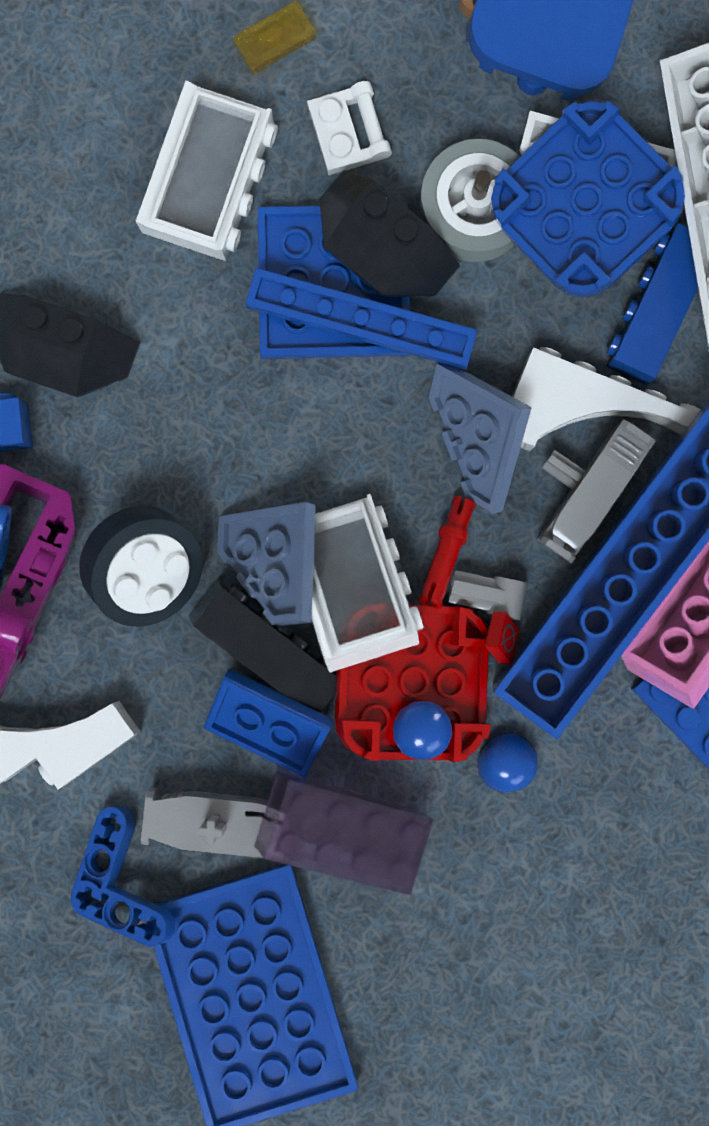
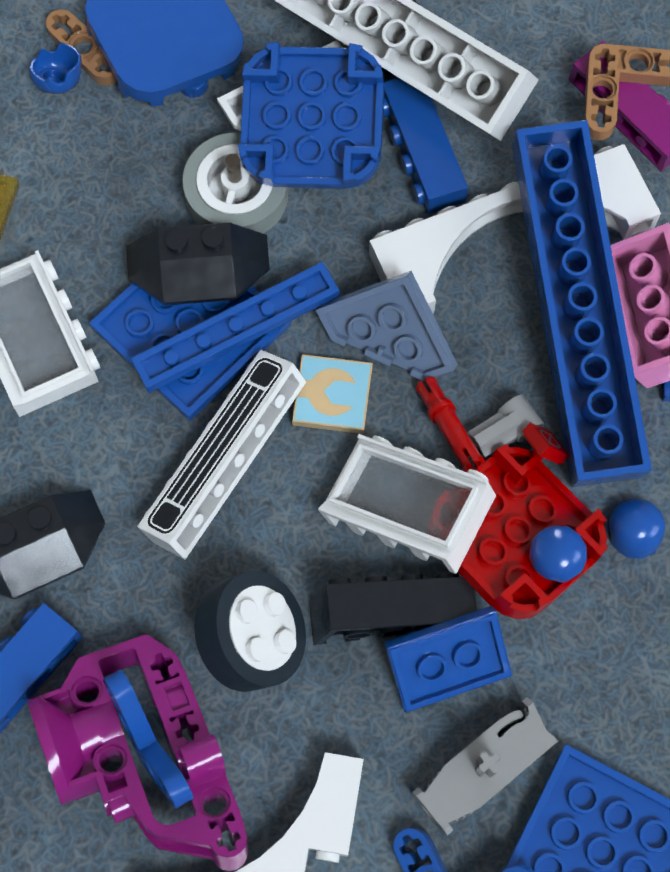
camera: 45 degrees left, 15 degrees down
(257, 409) = (222, 454): none -> white brick
(273, 558) = (337, 535): sand blue plate -> none
(337, 133) = (96, 230): white plate -> none
(343, 833) = (578, 677): clear purple brick -> none
(387, 440) = (333, 394): none -> tile
(593, 488) = (501, 293): light grey piece -> none

